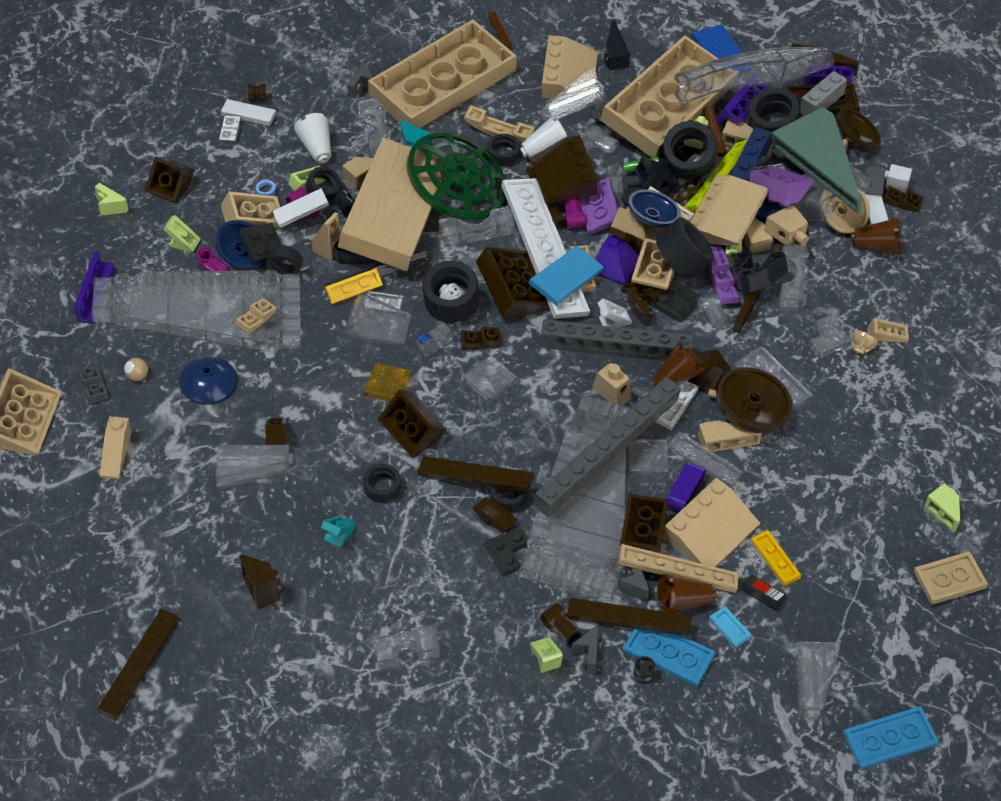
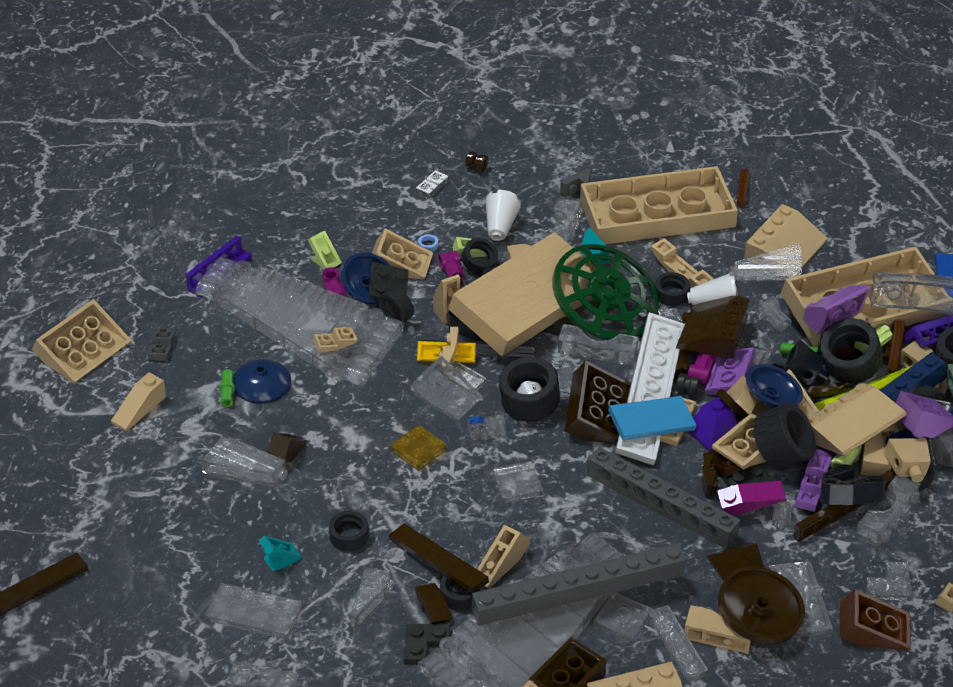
camera: 30 degrees right, 10 degrees down
(110, 201) = (284, 203): yellowish green slope -> none
(136, 369) = (204, 346): tan piece -> none
(168, 178) = (348, 203): dark brown slope -> none
(184, 400) = (227, 388): none -> bright green pin
(249, 112) = (459, 176): white tile -> none
(260, 581) = (173, 566): dark brown slope -> none
(300, 208) = (443, 267): white tile -> none
(350, 589) = (254, 611): none -> clear plate
(359, 273) = (452, 339): none -> tan slope
(411, 423) = (413, 489): dark brown slope -> none
(439, 527) = (371, 595): none -> clear slope
(485, 338) = (536, 445): dark brown slope -> none
(516, 173) = (670, 314): none -> clear tile
(523, 446) = (503, 554): none -> tan slope
(572, 232) = (687, 384): none -> pearl dark grey wheel
(613, 314) = (677, 472): white slope -> none
(613, 384) = (627, 528): tan torso -> none
(616, 52) = (844, 240): black slope -> none
(660, 116) = (838, 306): none -> medium lavender slope
(674, 413) = (693, 578): white tile -> none
(679, 366) = (707, 542): reddish brown cone -> none
(685, 486) = (640, 656): dark purple beam -> none
(687, 311) = (750, 497): none -> magenta slope
(837, 376) = (873, 622): none -> reddish brown slope
(862, 342) = (923, 602): tan piece -> none

